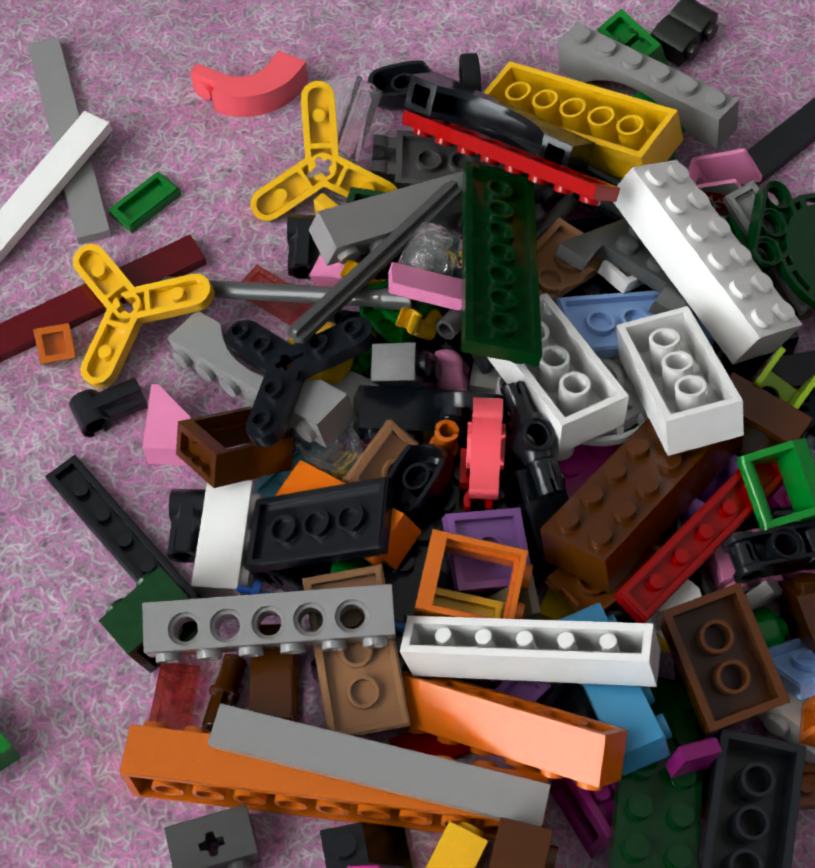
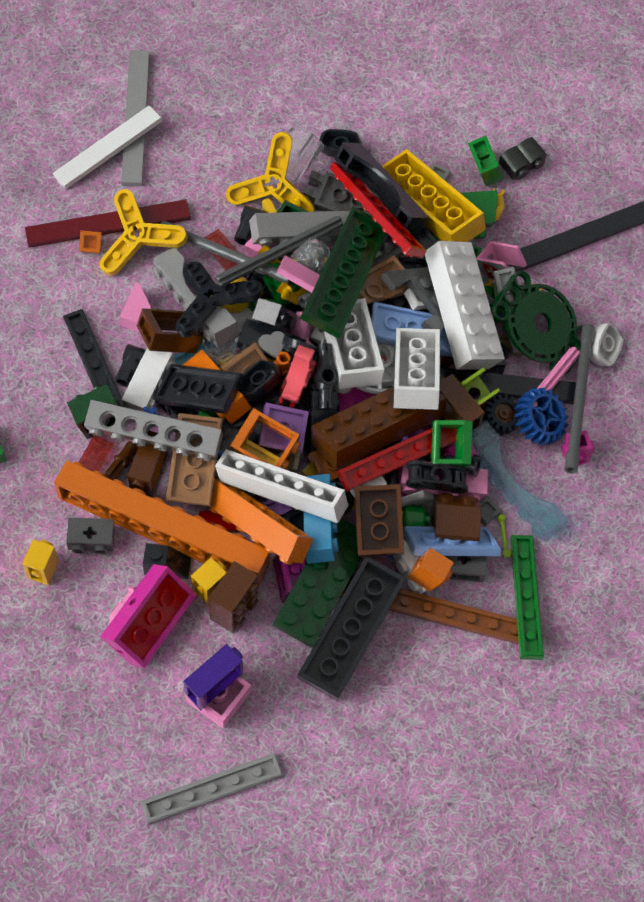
camera: 10 degrees right, 5 degrees up
(100, 409) = (102, 287): black piece -> none
(144, 202) = (167, 171): green tile -> none
(255, 93) = (252, 122): coral arch -> none
(379, 765) = (184, 518): light grey tile -> none
(417, 414) = (271, 343): none -> light grey tile
(470, 70) = (381, 149): black tyre -> none
(693, 757) = (346, 565): magenta tile -> none
(701, 108) = (502, 210): light grey arch -> none

